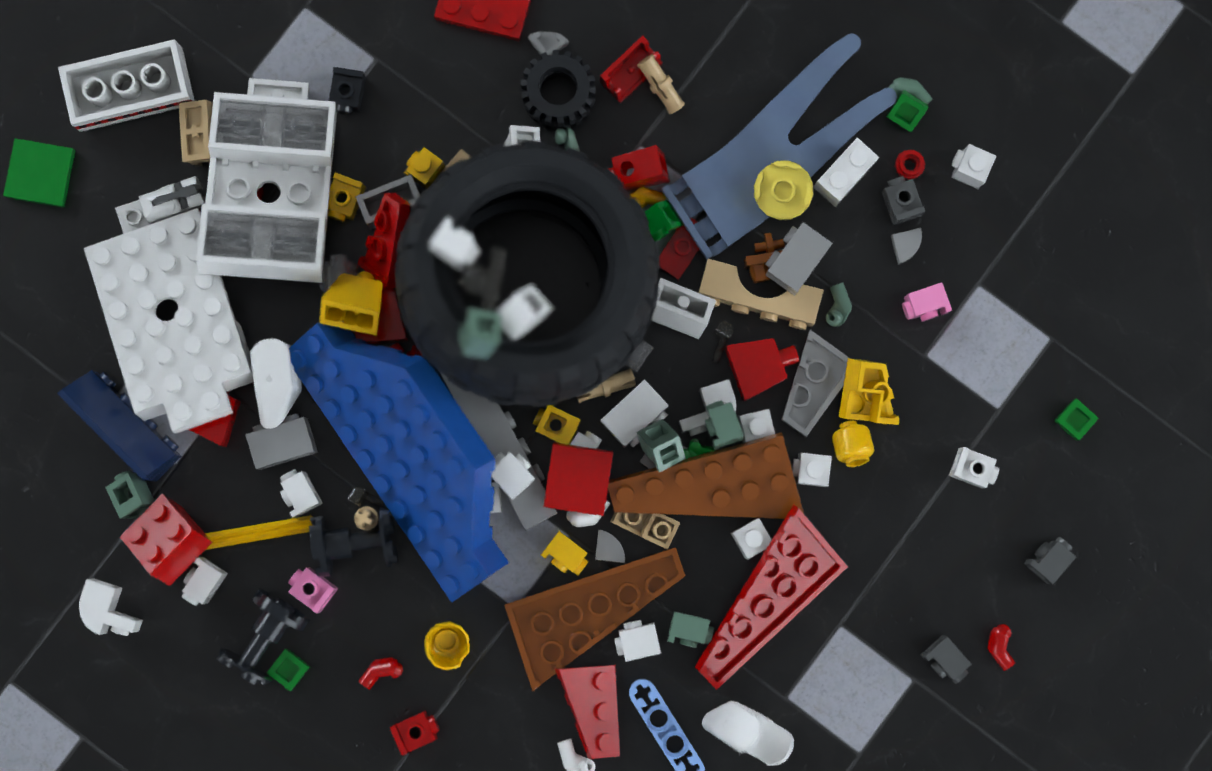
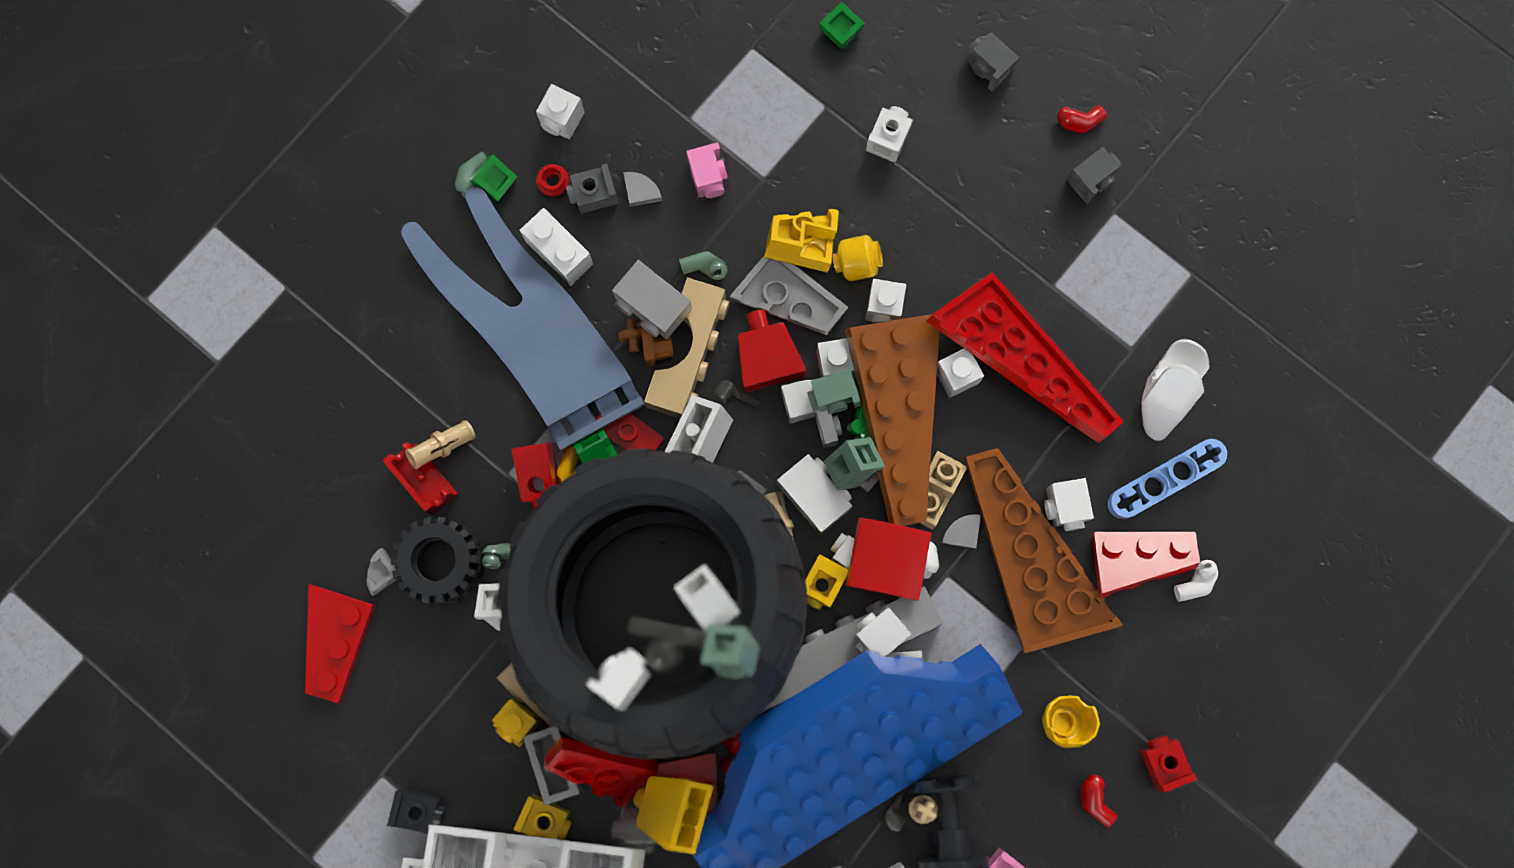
camera: 85 degrees left, 5 degrees down
(566, 554) = (969, 580): yellow brick -> none
(690, 629) = (1056, 447): sand green brick -> none
(783, 190) = (572, 315): light yellow tile -> none

